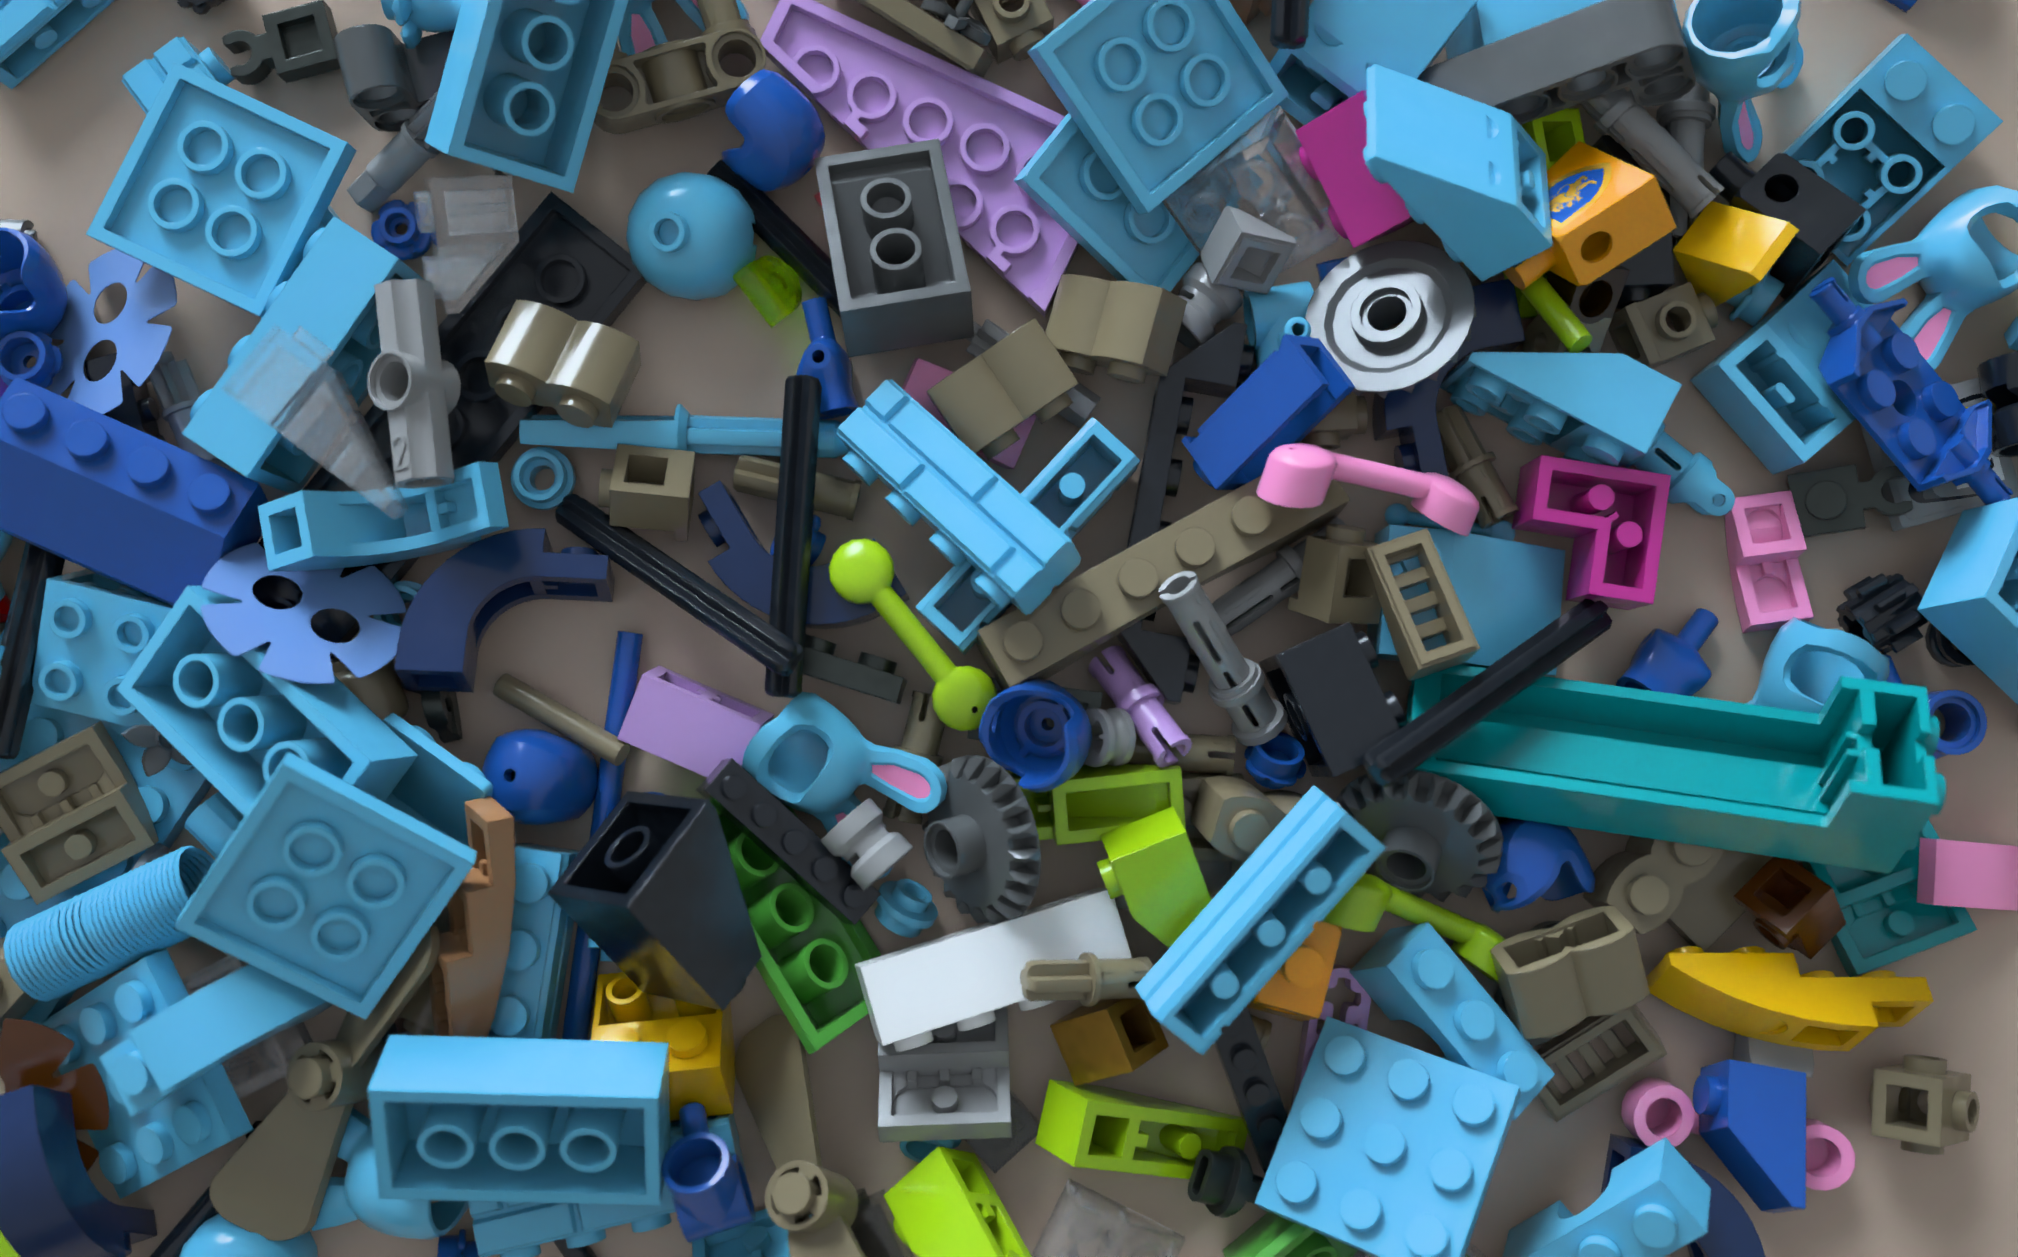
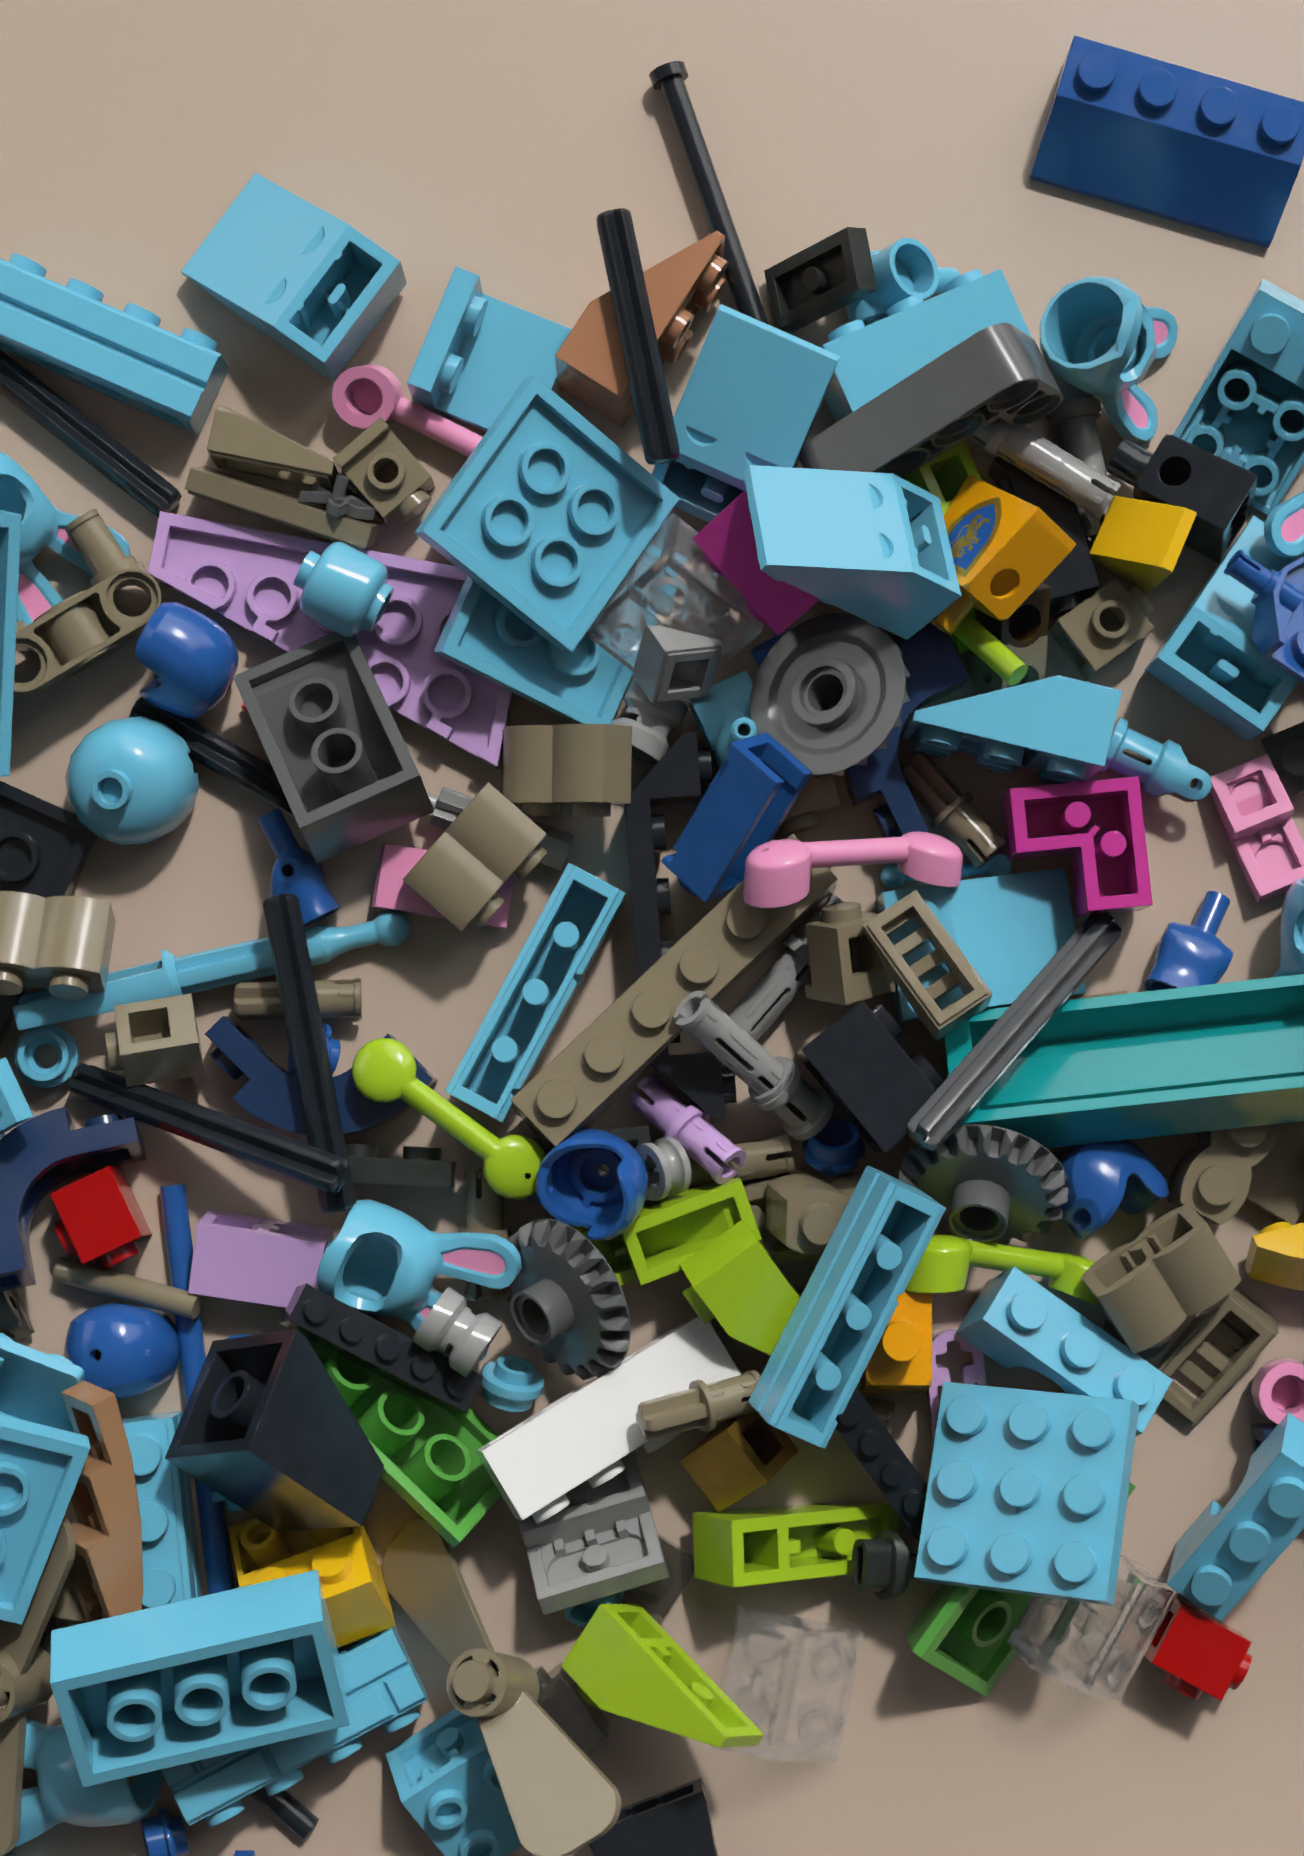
camera: 15 degrees left, 0 degrees up
(552, 645) = (100, 1218): none -> red brick
(705, 1179) = (386, 1691): blue piece -> none
(770, 287) = (222, 812): clear neon green plate -> none
(942, 100) = (343, 589): none -> medium azure head
(959, 497) = (459, 976): medium azure brick -> none
(1756, 300) = (1187, 572): medium azure plate -> none

